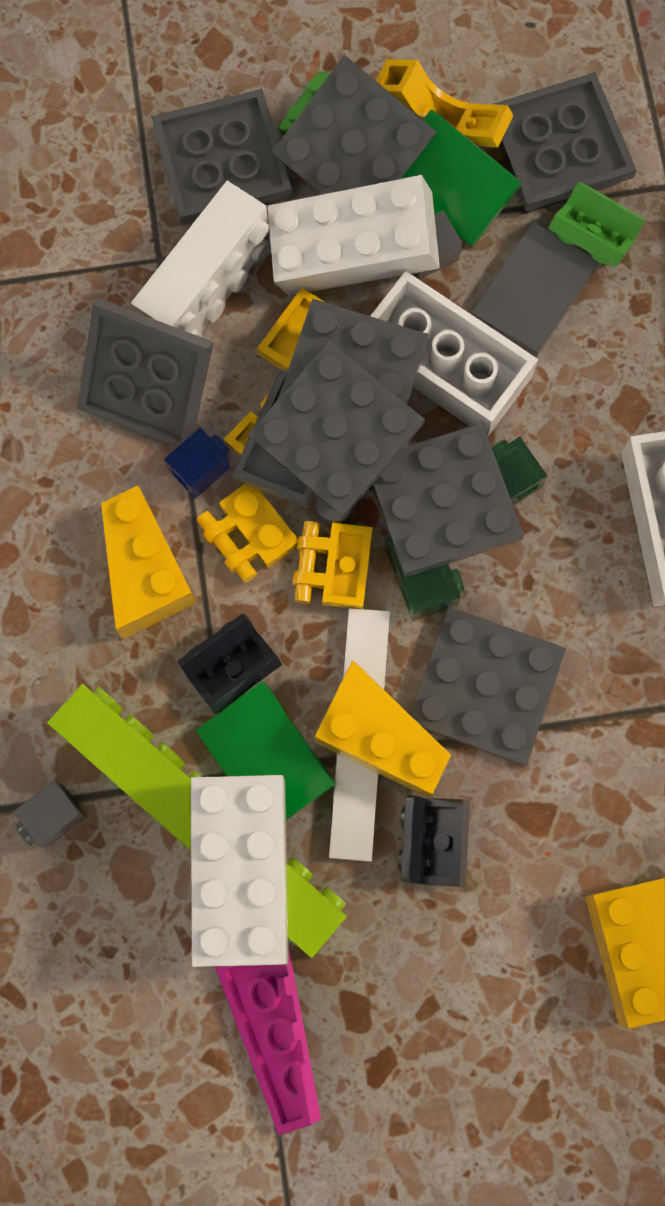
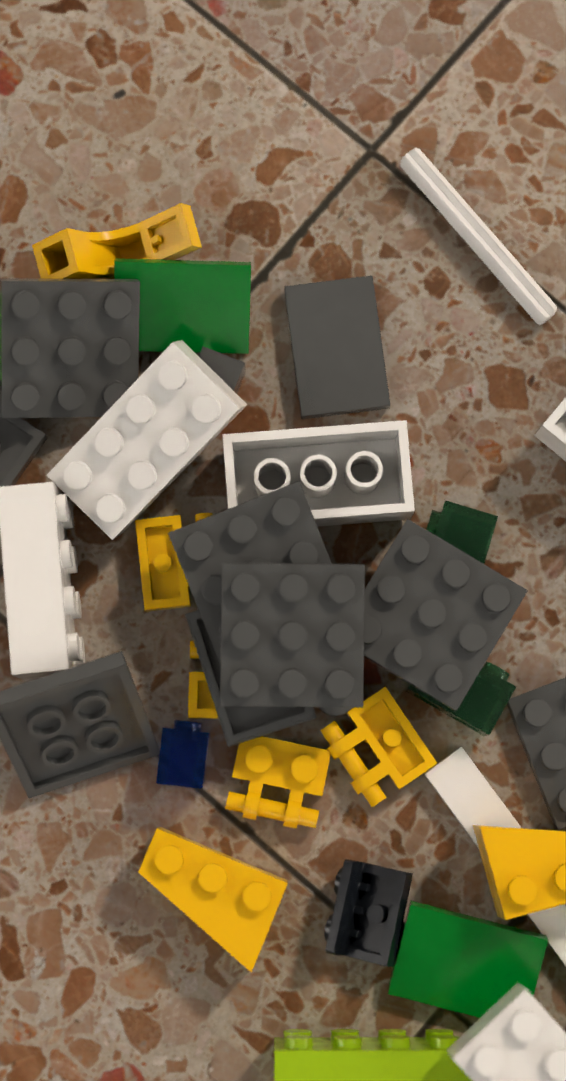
camera: 45 degrees left, 5 degrees up
(564, 139) = (247, 188): dark grey plate -> none
(597, 225) = (345, 246): bright green bracket -> none

